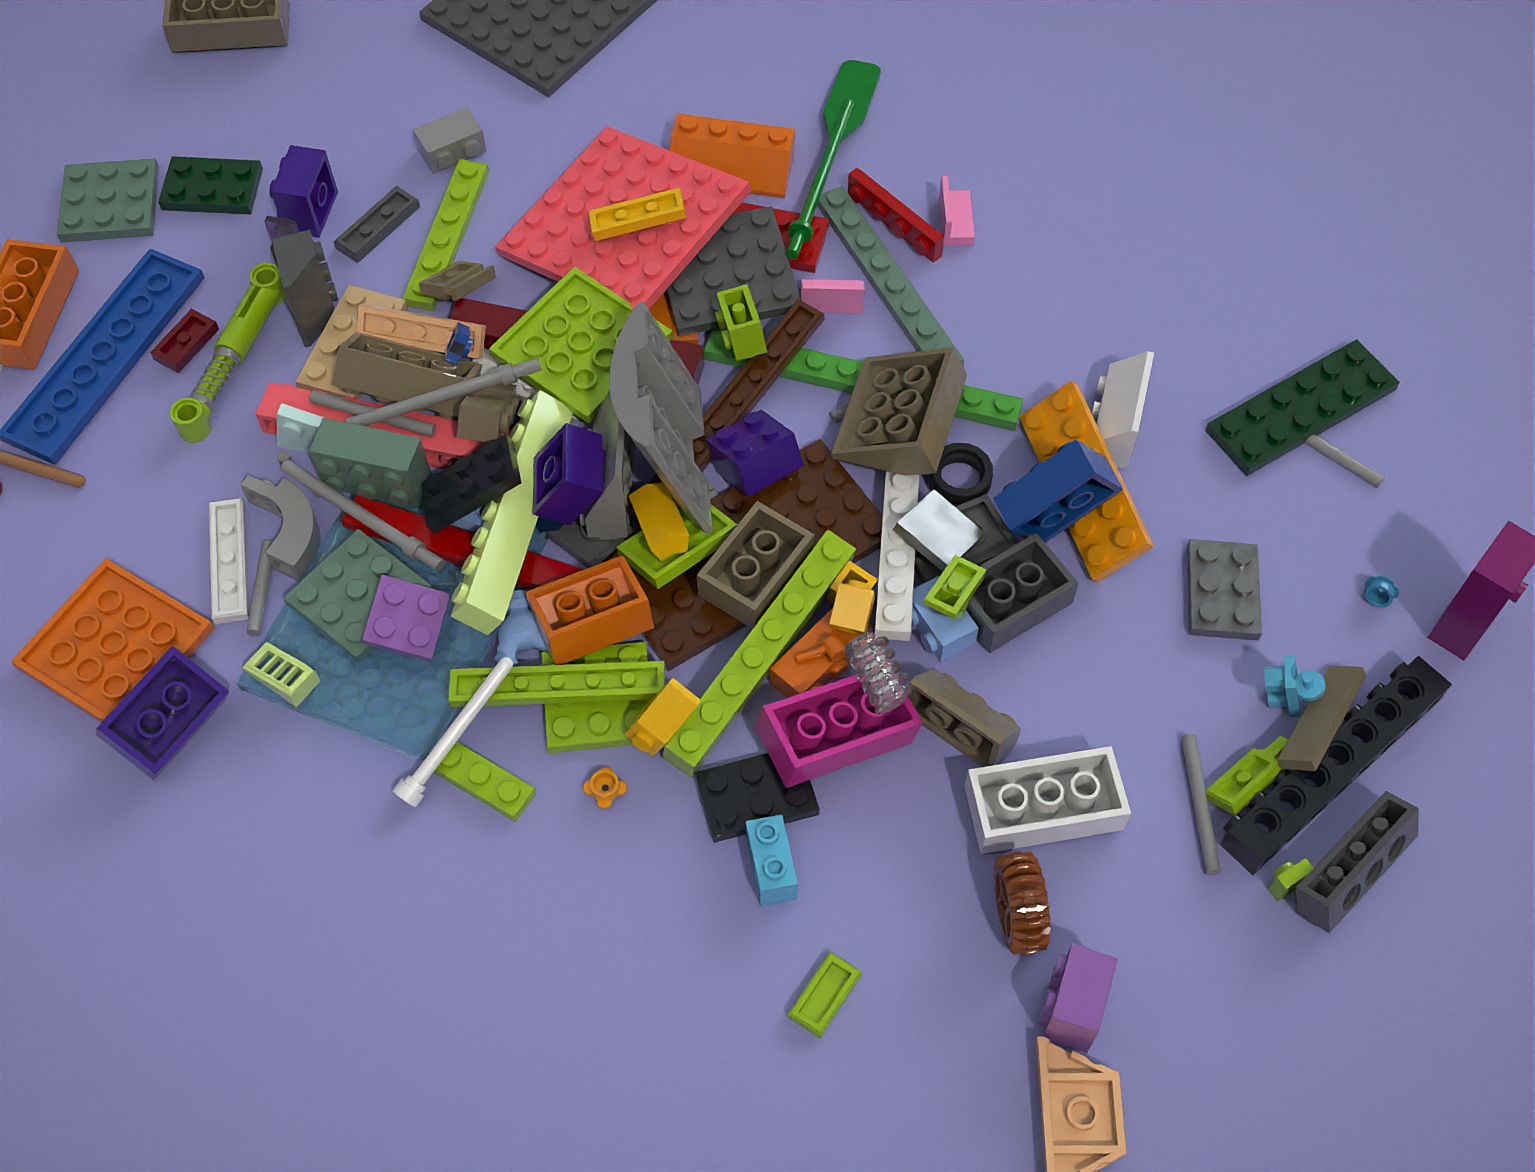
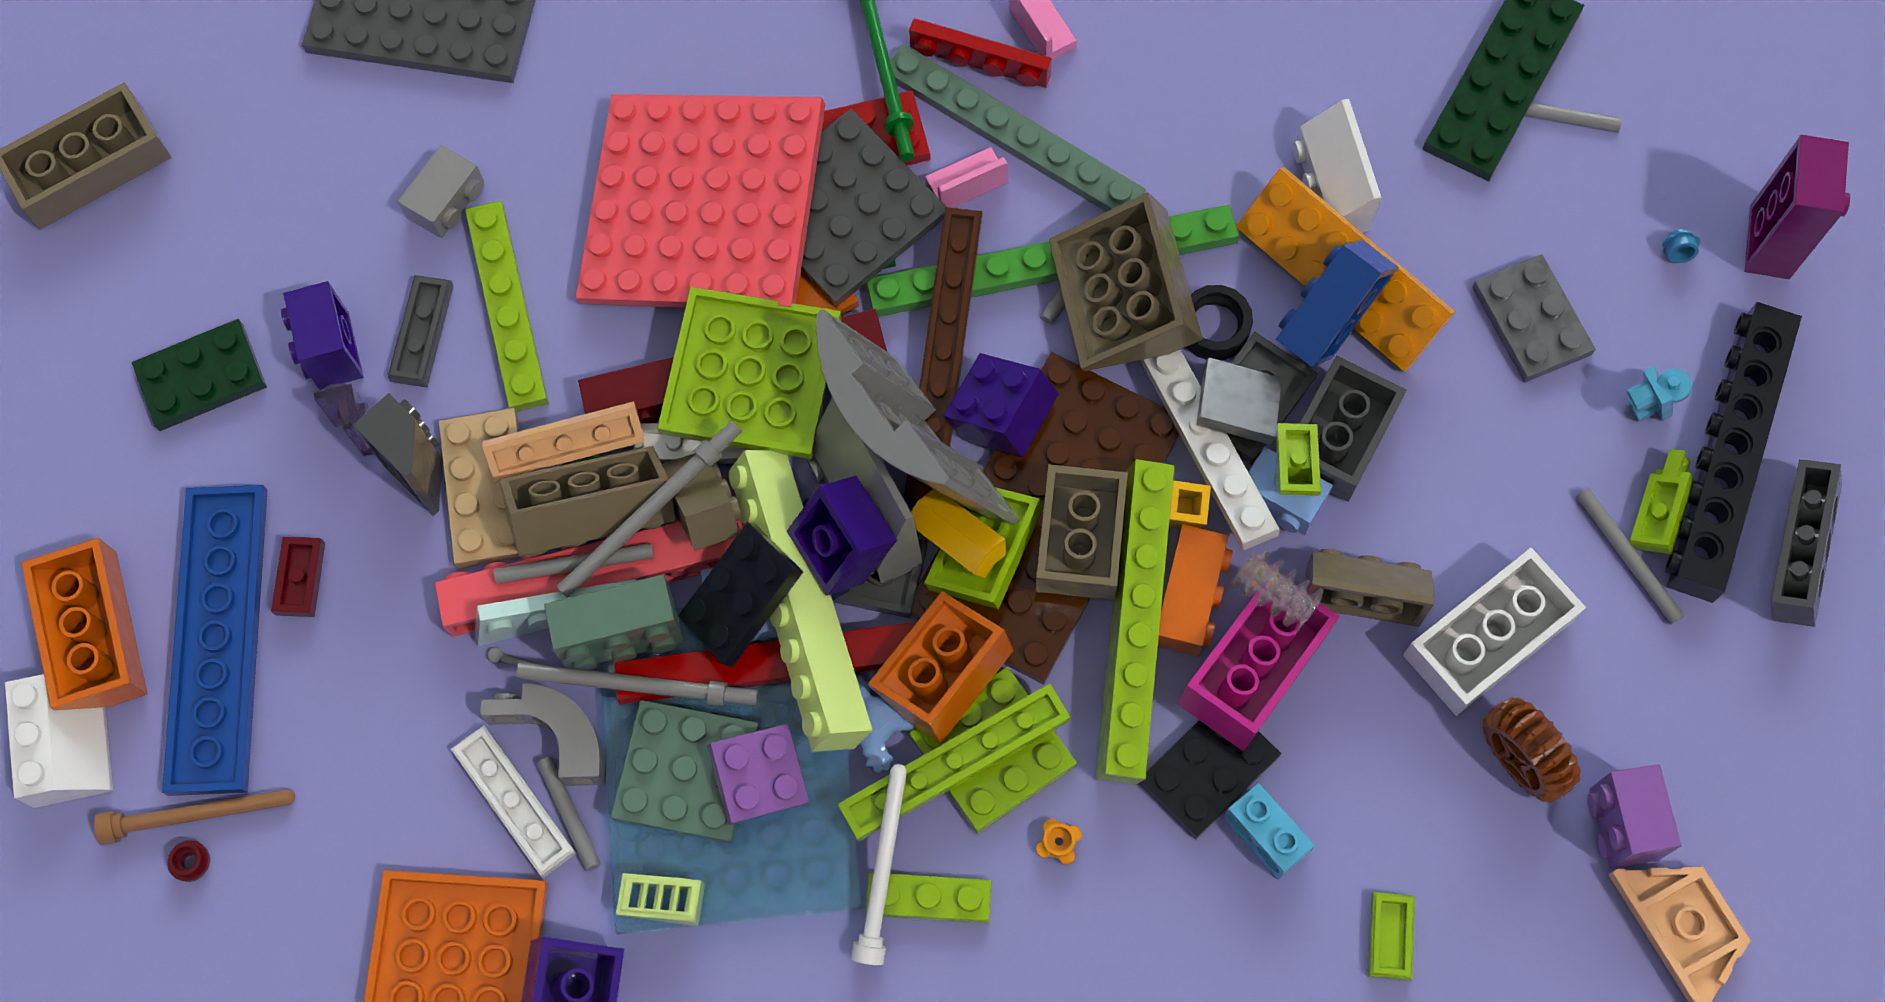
camera: 25 degrees left, 10 degrees up
(108, 200) = (91, 450): sand green plate -> none
(265, 292) = (358, 561): lime piece -> none
(456, 280) = (561, 359): dark tan plate -> none
(459, 344) = (621, 439): blue plate -> none
(637, 214) = (725, 193): yellow plate -> none
(662, 717) = (1084, 745): yellow slope -> none
(739, 148) = (769, 58): orange slope -> none
(741, 323) = (907, 265): lime brick -> none
(831, 646) = (1208, 581): orange hand -> none
(852, 608) = (1208, 531): yellow brick -> none
(1288, 878) = (1753, 590): lime plate -> none
(1322, 719) = (1702, 414): dark tan tile -> none

